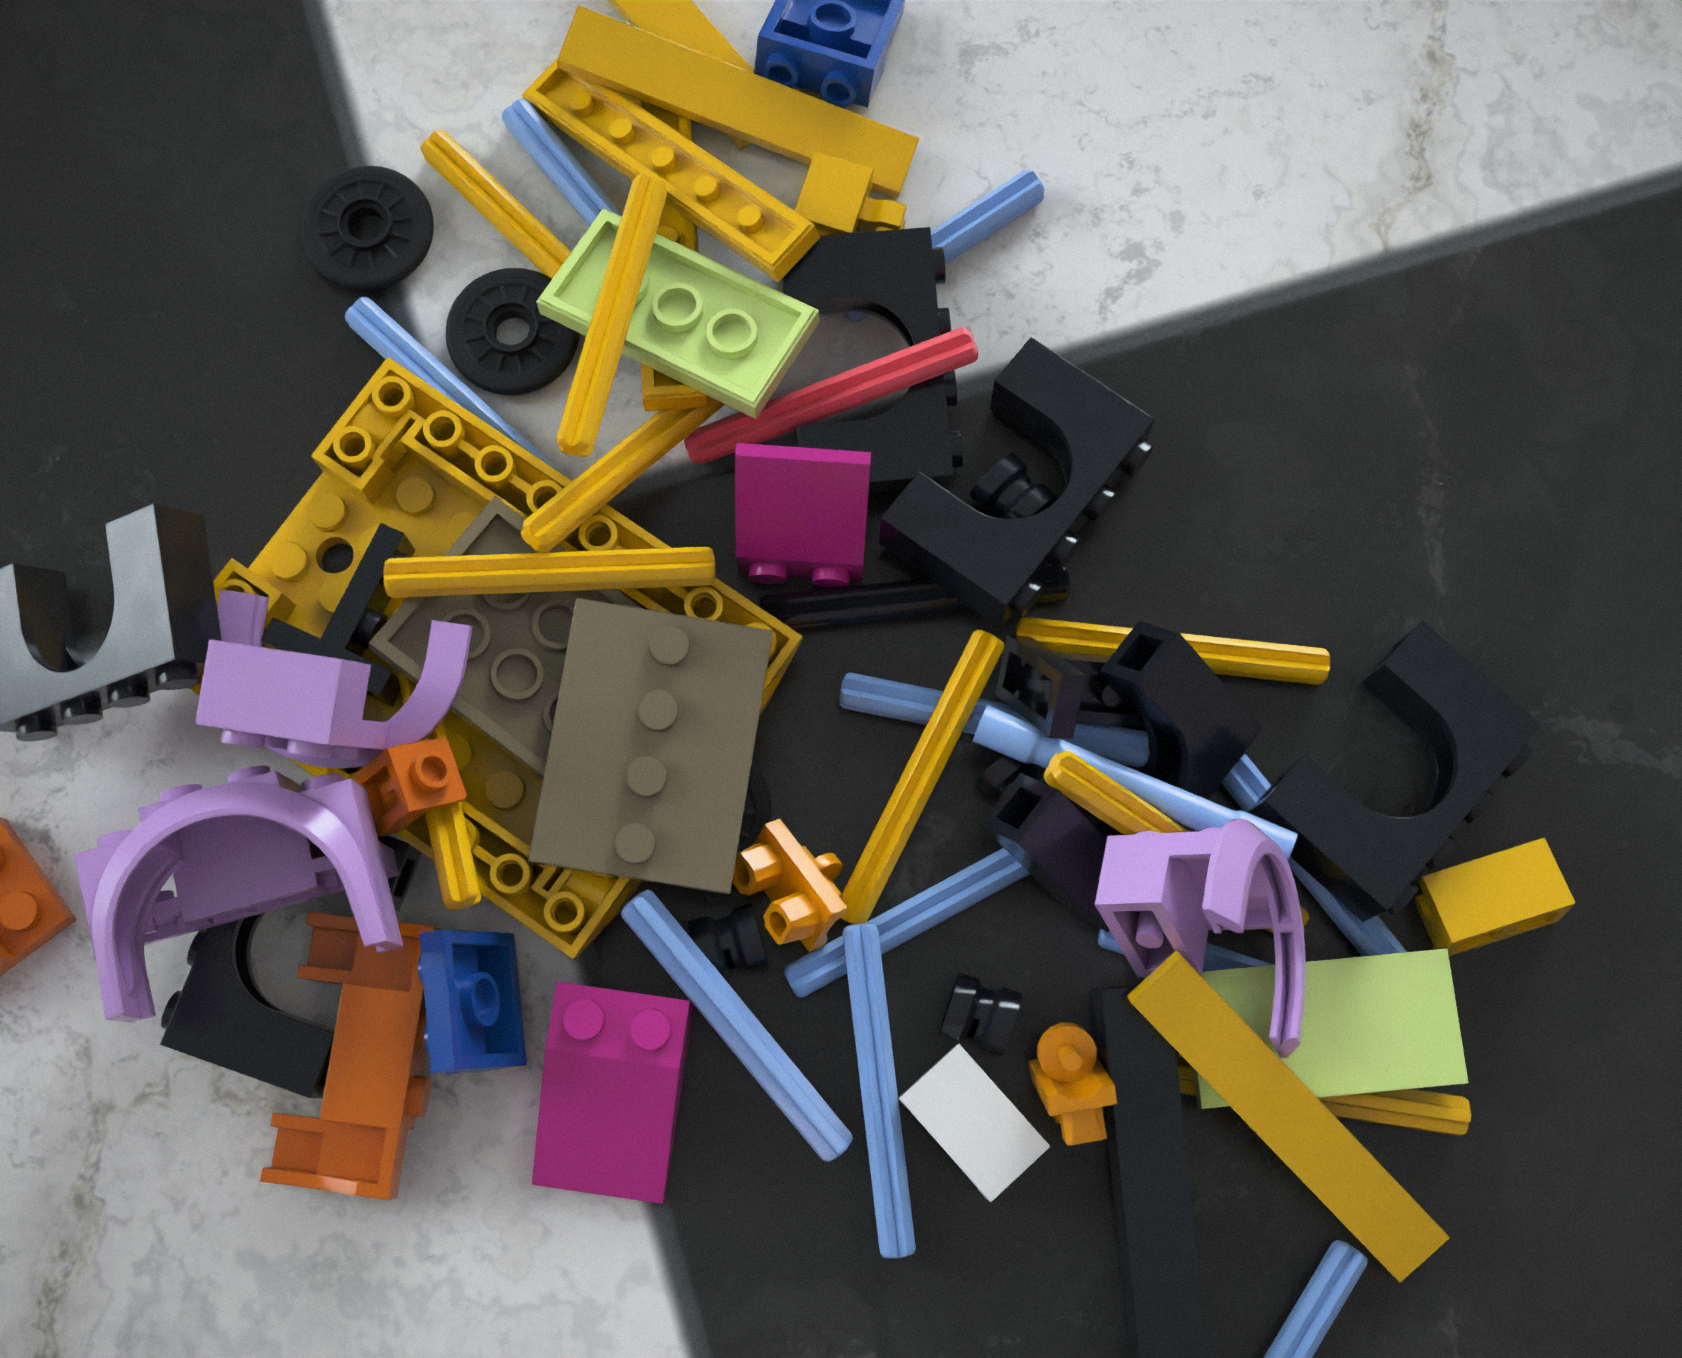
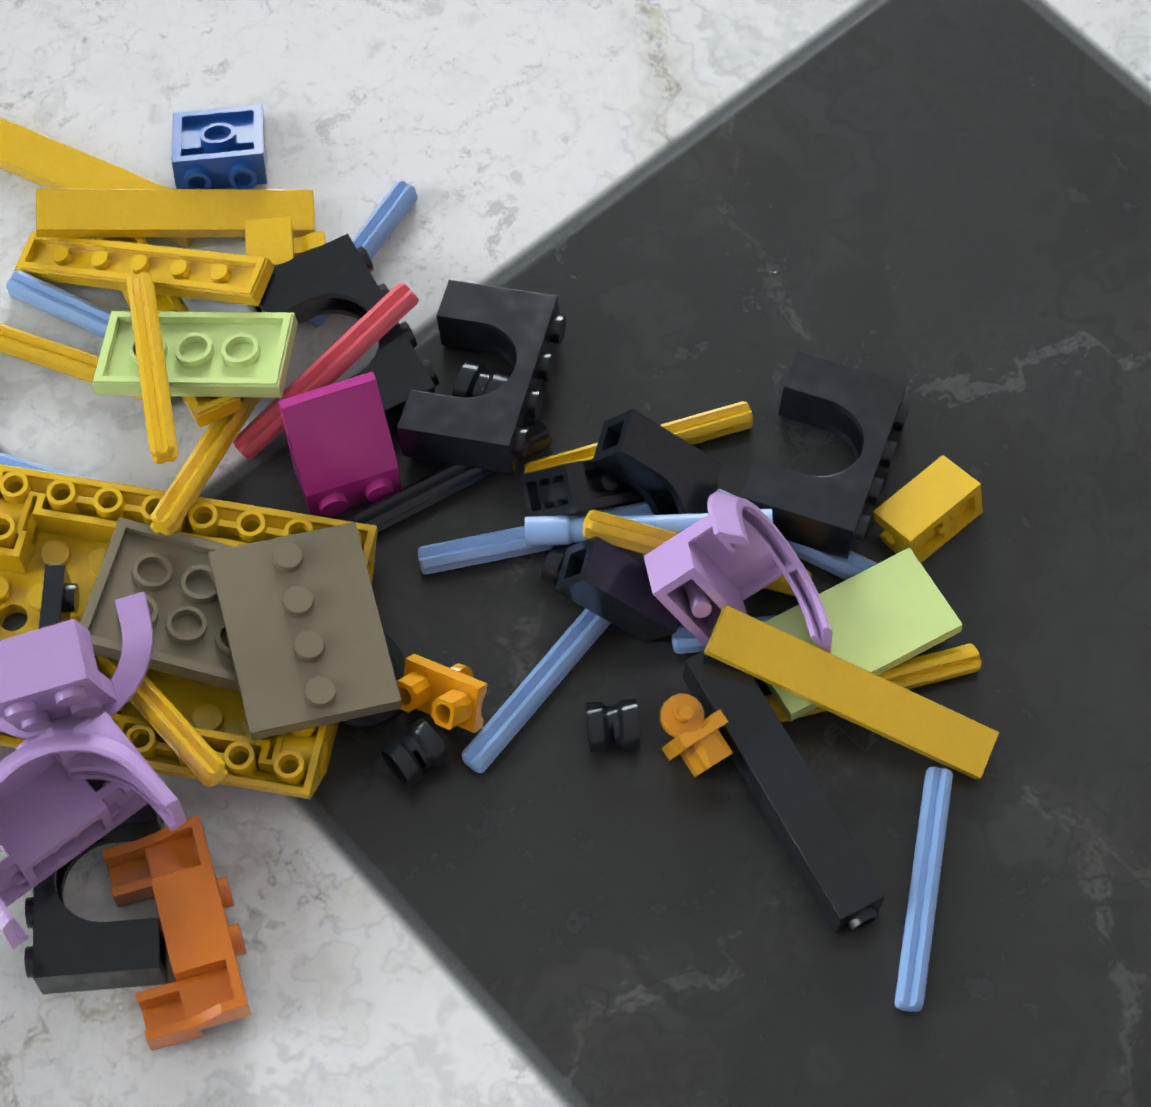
camera: 20 degrees left, 15 degrees down
(410, 781) = (144, 711): orange bracket -> none
(471, 1001) = (249, 854): blue plate -> none
(500, 366) = (75, 450): black wheel -> none
(548, 572) = (180, 545): yellow axle -> none
(611, 1091) = (374, 882): dark pink slope -> none
(737, 1025) = (445, 796): light blue axle -> none
(879, 1091) = (564, 802): light blue axle -> none
(920, 775) = (500, 589): yellow axle -> none
(974, 1122) = (640, 791): white panel -> none

